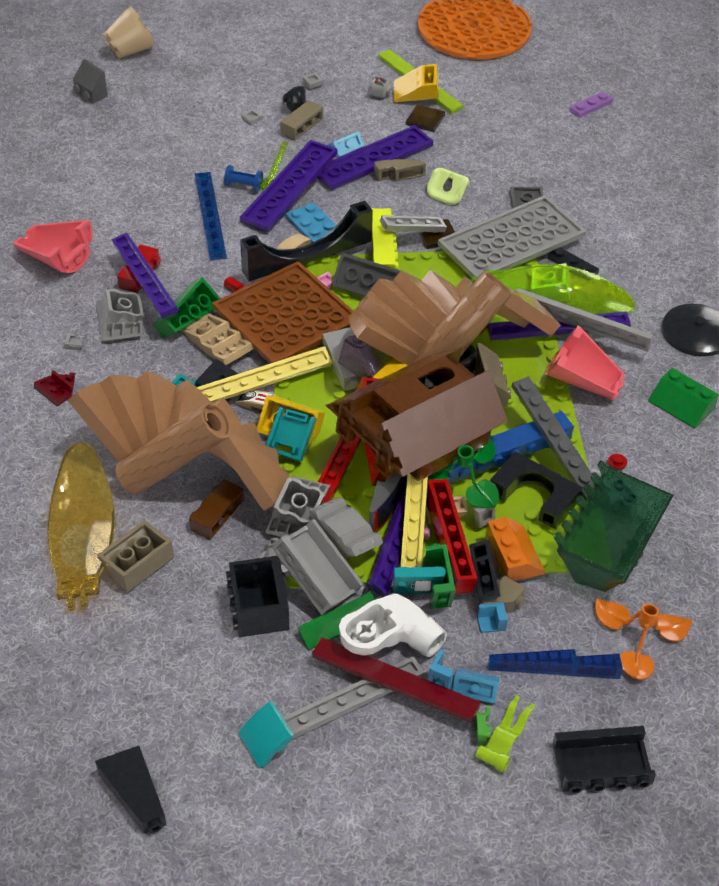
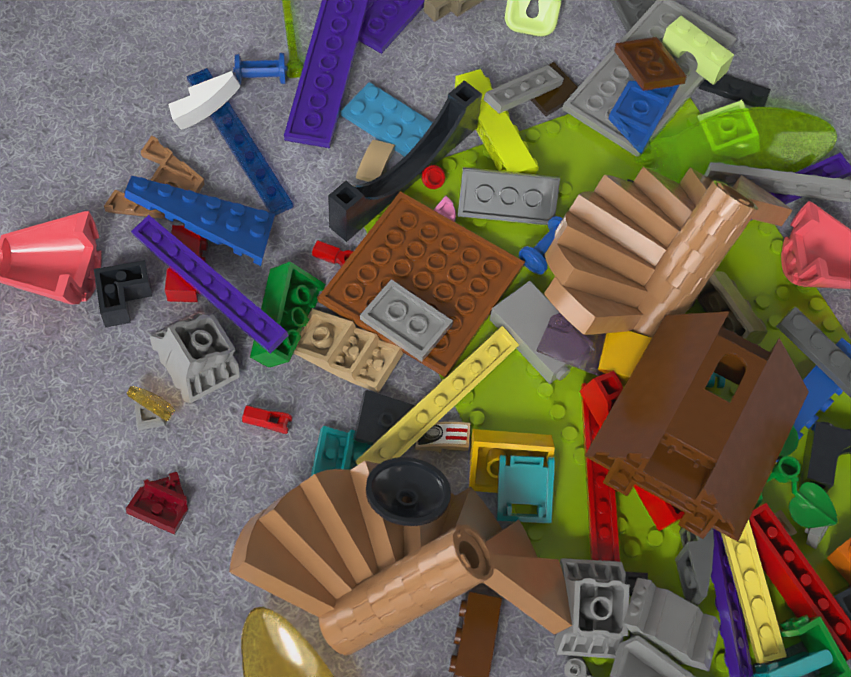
camera: 25 degrees left, 15 degrees up
(78, 332) = (152, 402): none -> clear yellow tile
(90, 268) = (119, 285): none -> black brick
(145, 361) = (262, 418): none -> red bar
(148, 230) = (169, 172): none -> medium nougat wing
(166, 246) = (210, 217): none -> blue wing
(194, 394) = (408, 491): none -> black dish
(197, 185) = (203, 100): none -> white slope
(261, 326) = (406, 320): none -> light grey plate
(325, 259) = (433, 177): none -> red plate
(490, 252) = (640, 112): none -> blue wing
(508, 227) = (650, 63): none -> reddish brown plate
(556, 234) = (710, 55): none -> yellowish green arch

